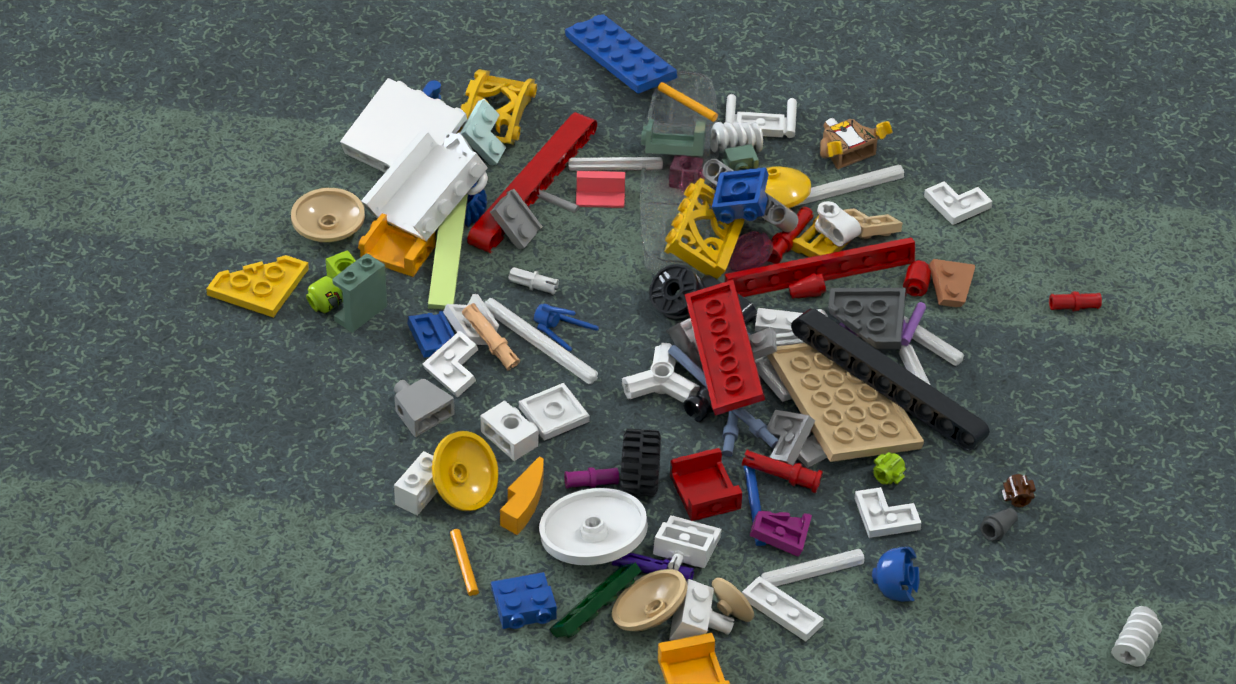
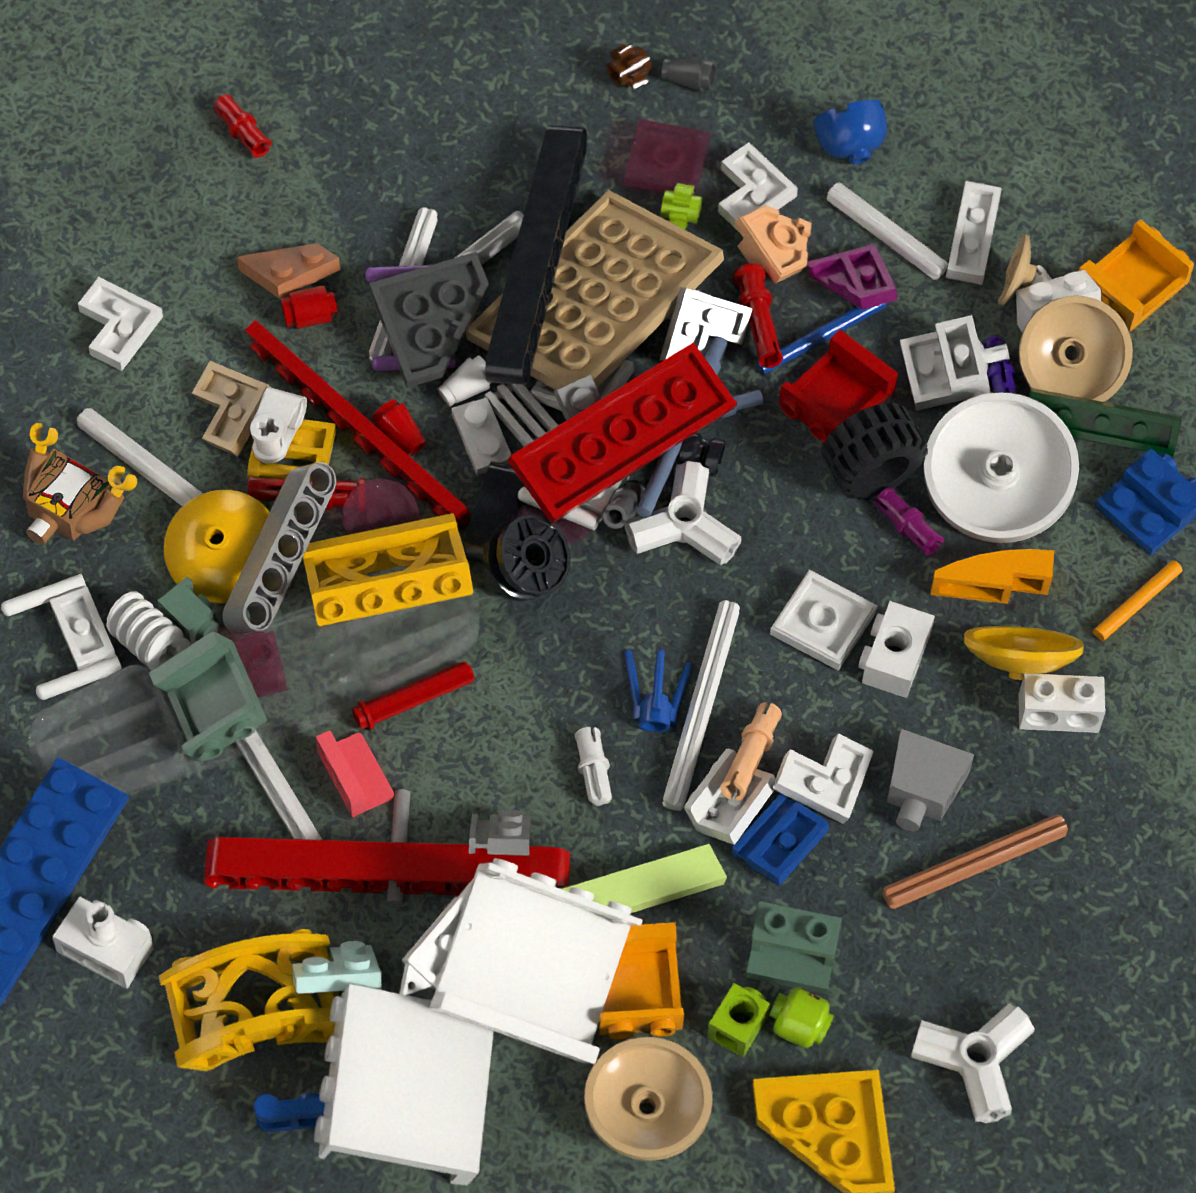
camera: 120 degrees left, 15 degrees up
(247, 352) = (982, 1080): none -> white piece
(358, 410) = (975, 861): none -> nougat axle
(569, 69) = (104, 941): none -> white brick
(631, 209) = (412, 695): none -> red axle
(688, 102) = (114, 719): light orange bar -> none
(740, 195) = (315, 532): blue plate -> none
(834, 503) = (774, 241): none -> light nougat plate
(934, 483) = (666, 156): none -> clear pink plate

